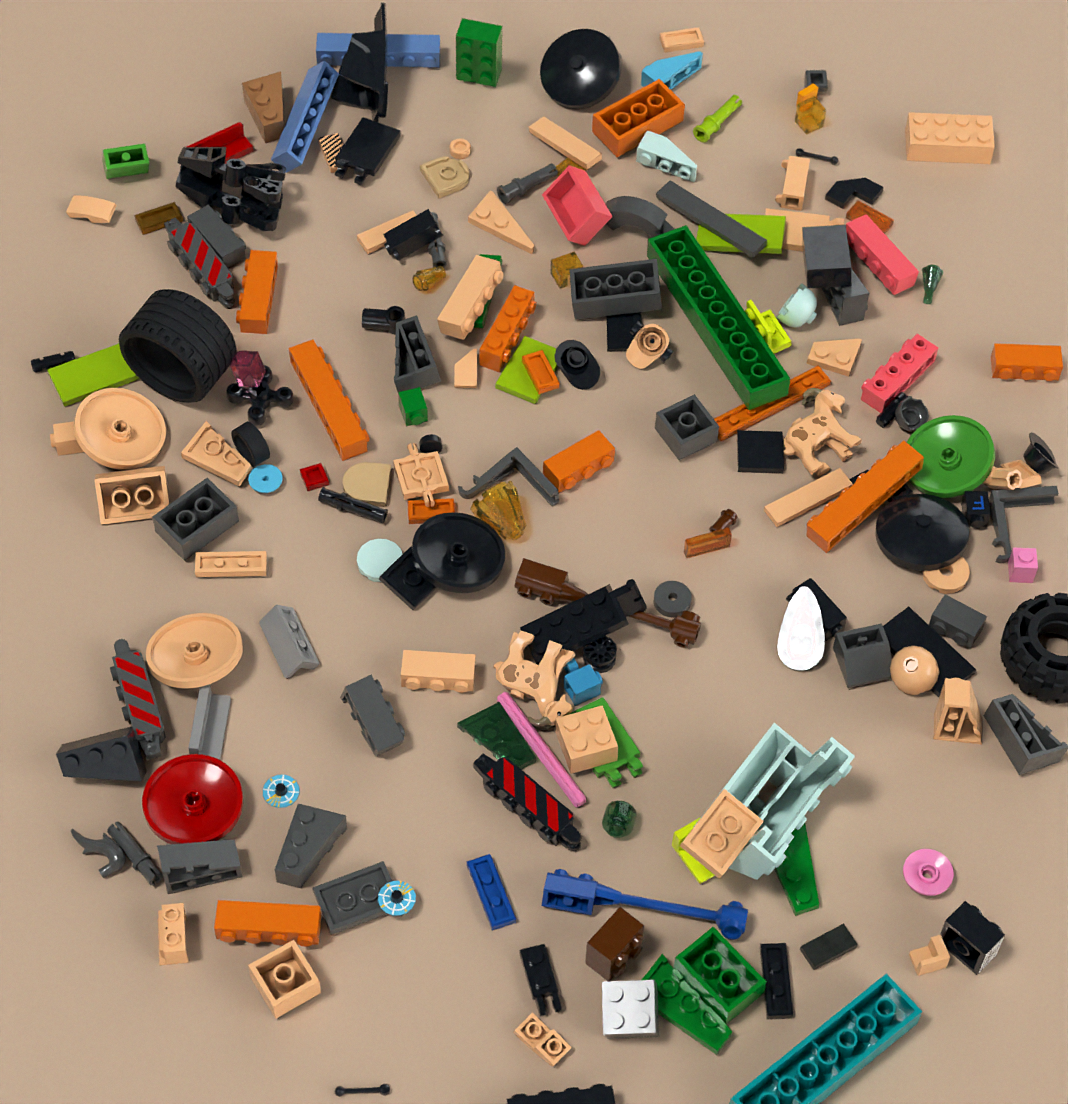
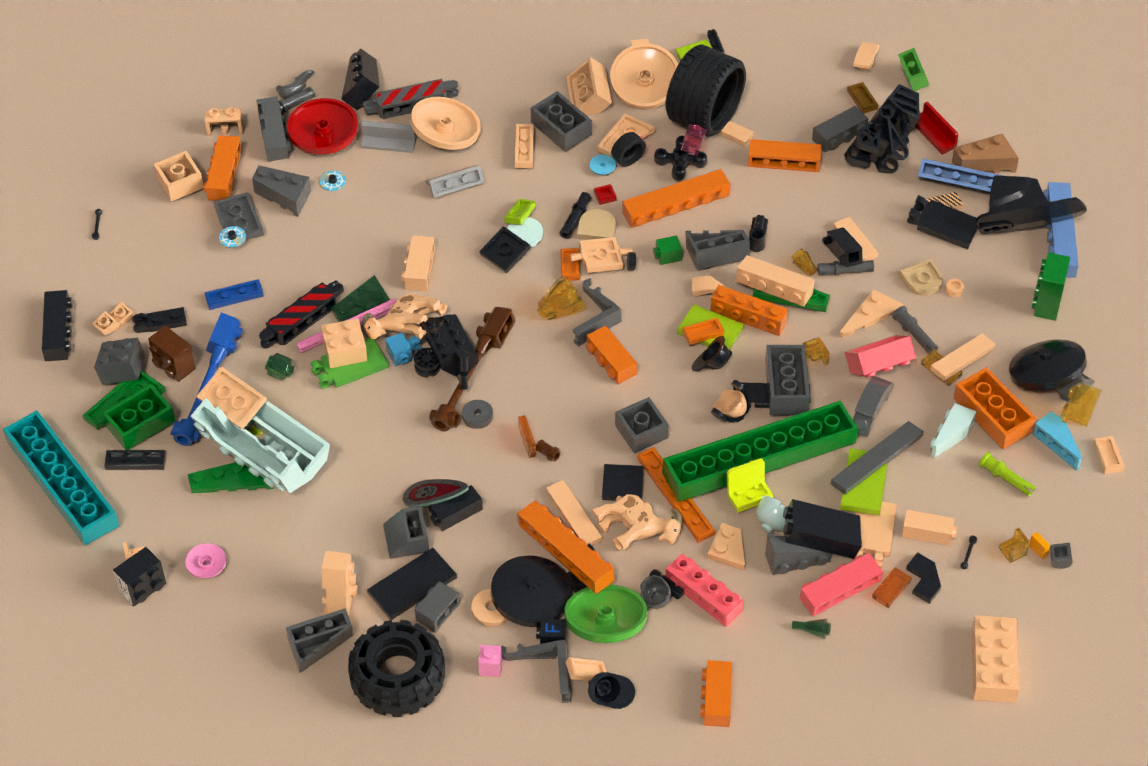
camera: 95 degrees right, 5 degrees down
(201, 261) = (800, 127): dark grey hinge -> none
(349, 563) = (520, 211): none -> lime tile
(373, 715) = (382, 222): dark grey wedge -> none
(458, 552) = (521, 272): black dish -> none
(636, 46) = (1082, 403): none -> clear yellow bracket
(828, 946) = (156, 494): pearl dark grey tile -> none
(914, 670) = (389, 565): light nougat cylinder -> none
(1003, 479) = (577, 648): light nougat piece -> none

